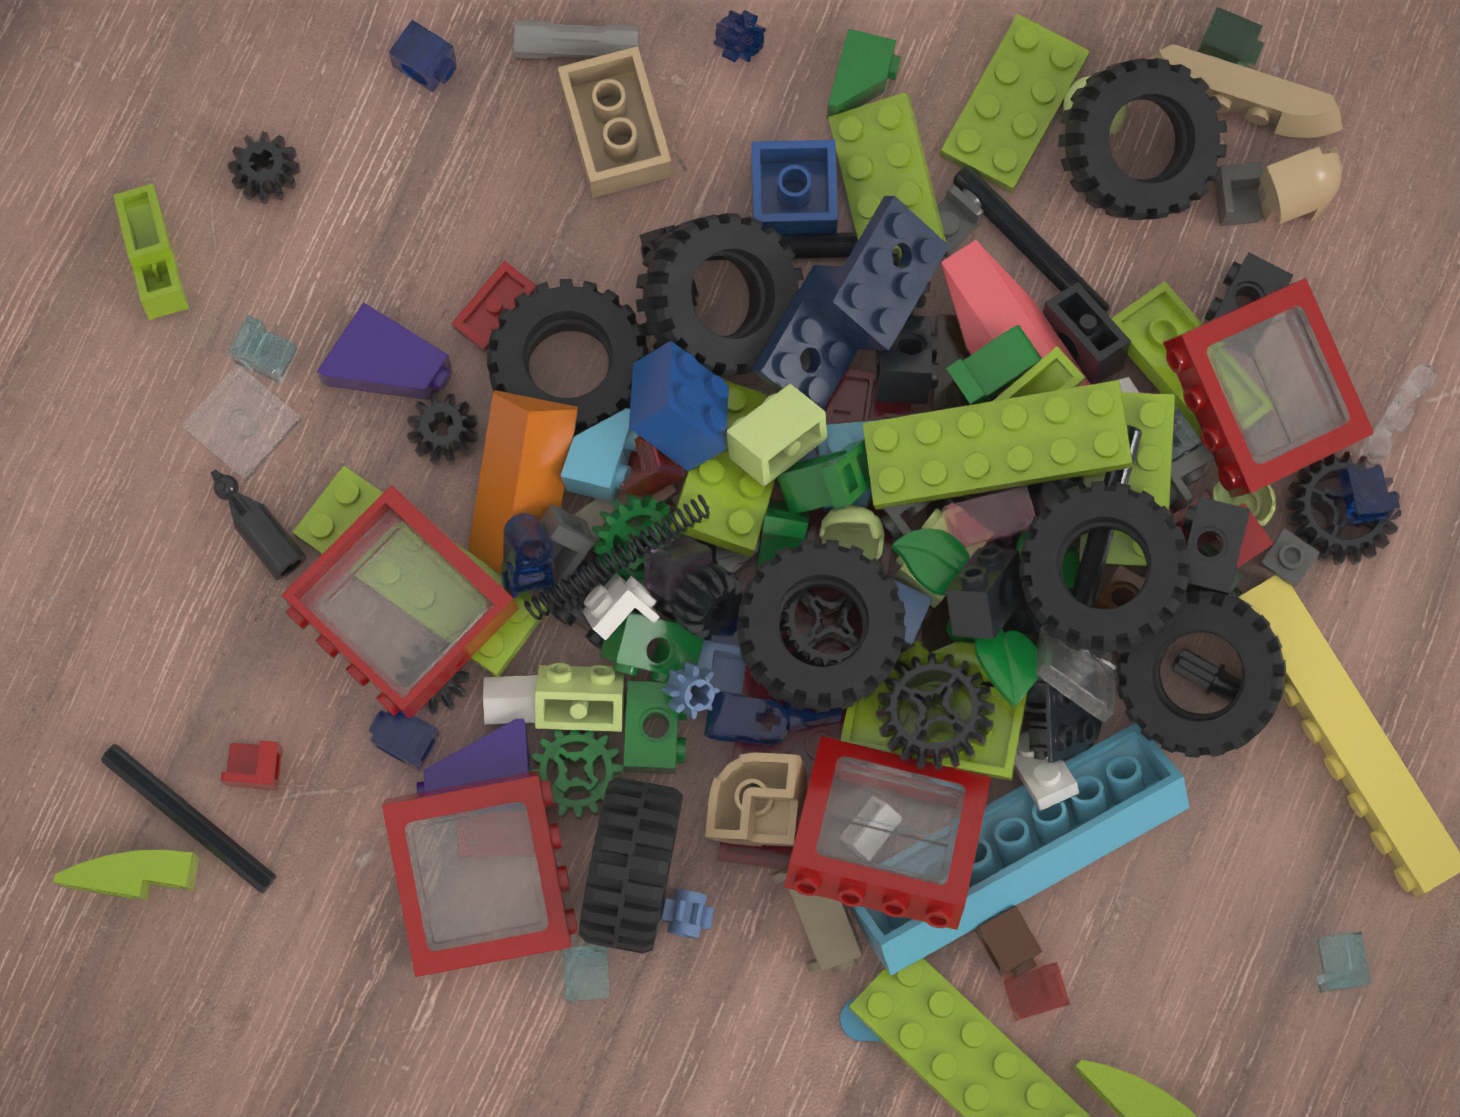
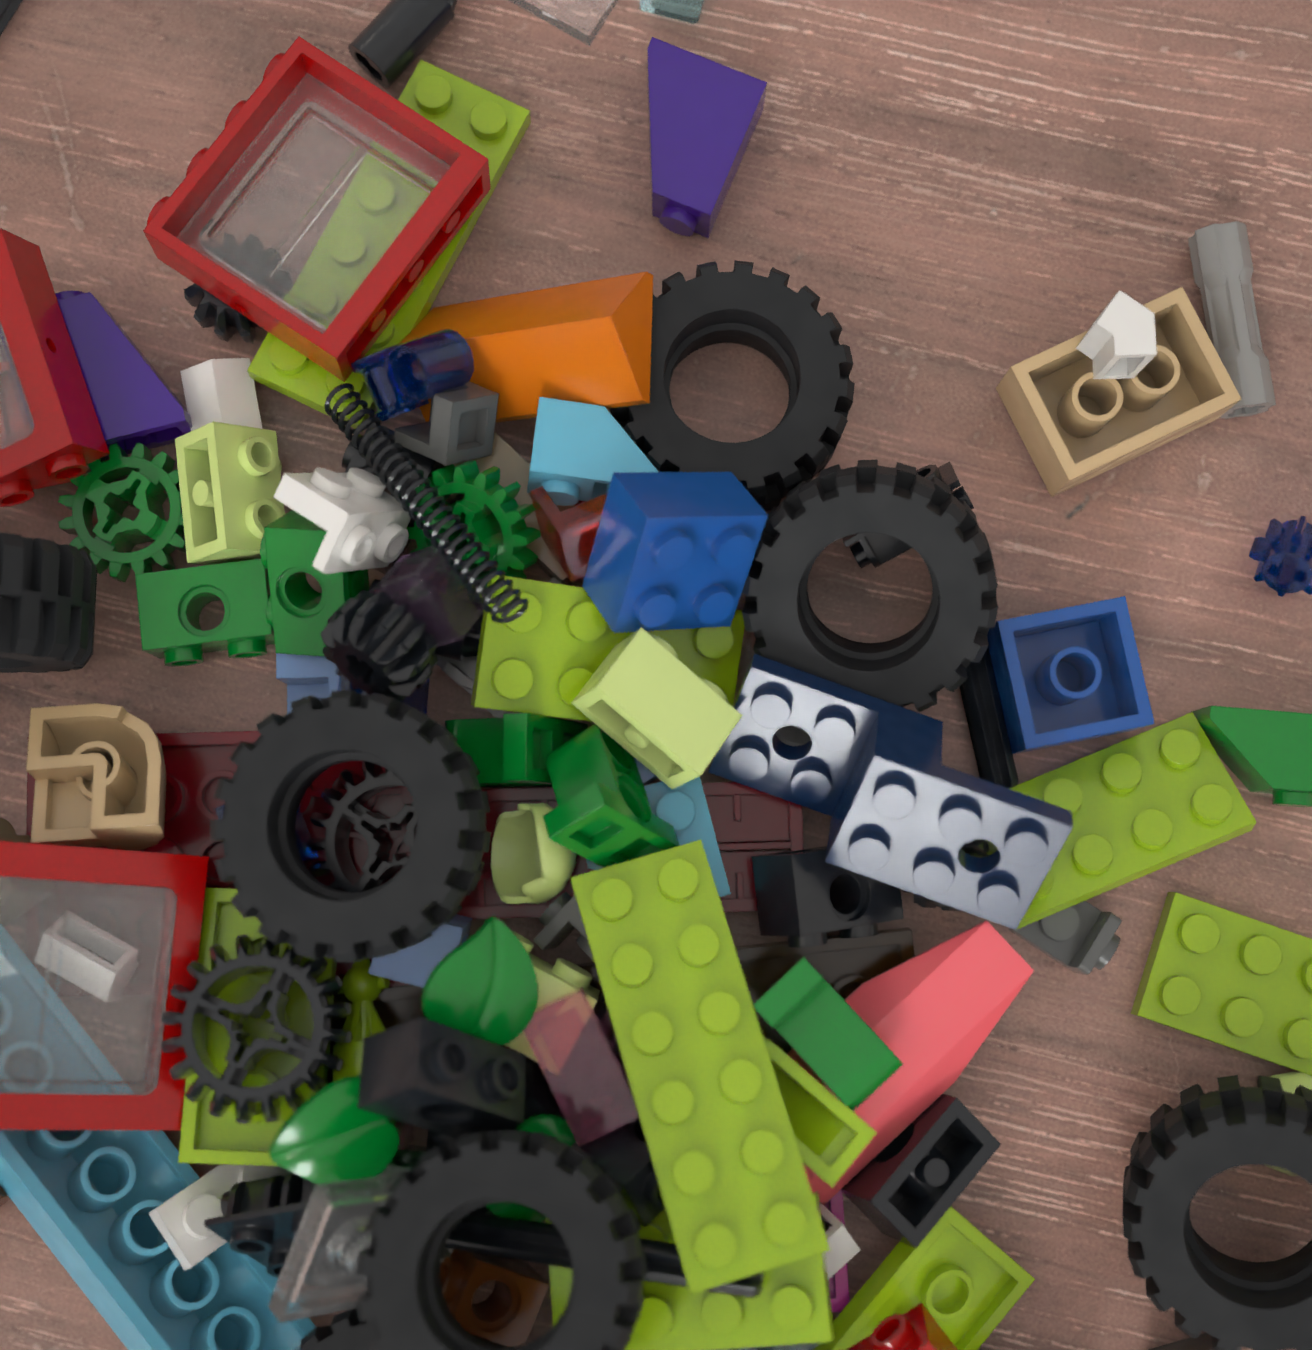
camera: 80 degrees right, 5 degrees up
(253, 766) = (78, 74): red panel -> none
(403, 738) = (134, 273): clear blue brick -> none
(423, 56) = (1161, 105): clear blue brick -> none
(458, 425) = (619, 218): black gear -> none
(483, 310) = (826, 274): red plate -> none
(590, 111) = (1120, 339): none -> white piece
(701, 694) = (249, 649): medium blue gear -> none
(737, 718) = (218, 721): clear blue piece -> none
(1023, 235) = (1063, 1045): black axle -> none

